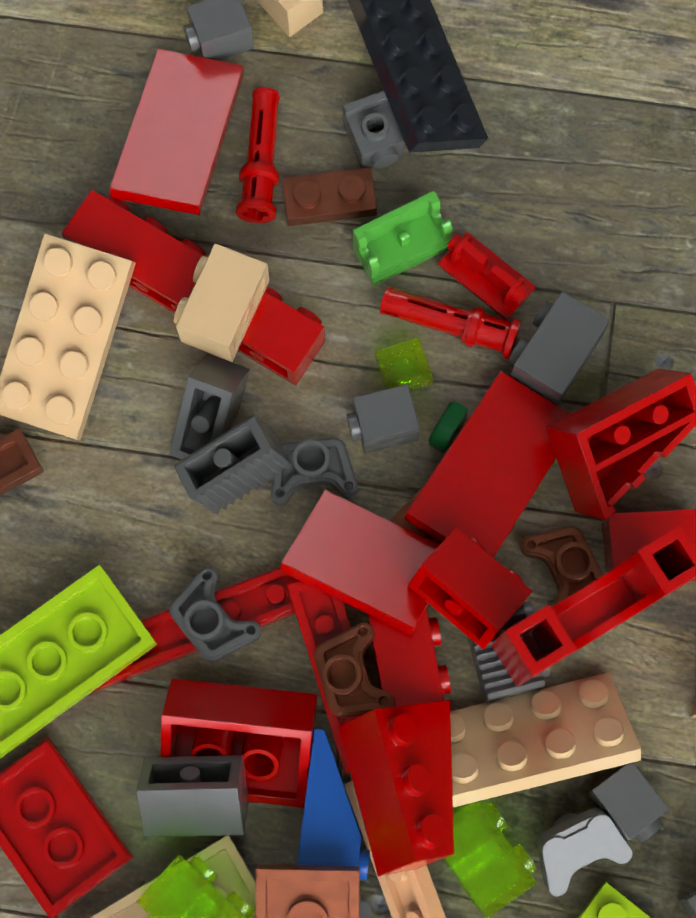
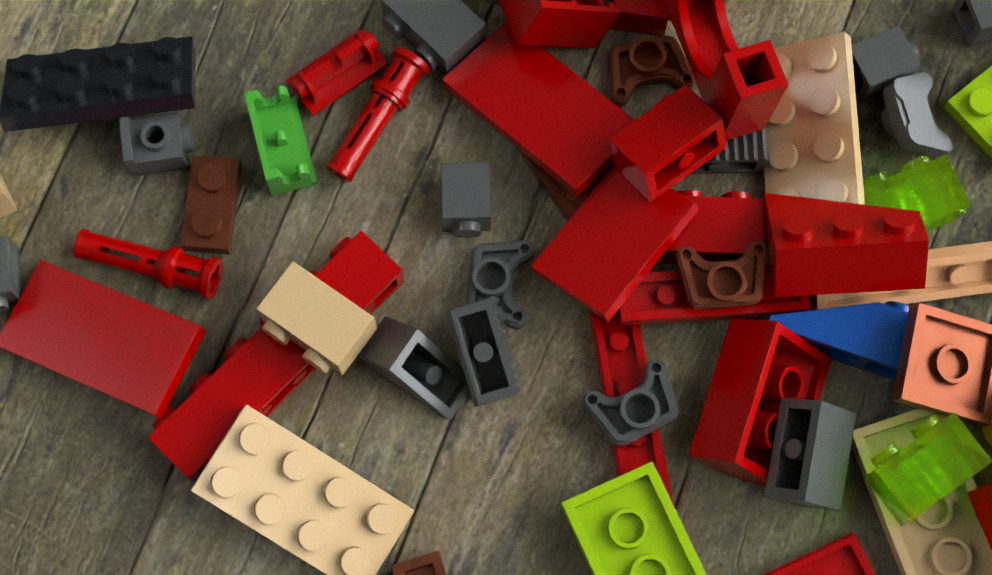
camera: 80 degrees left, 0 degrees up
(404, 365) = (415, 169): clear neon green plate -> none
(448, 426) = (487, 140): dark green tile -> none

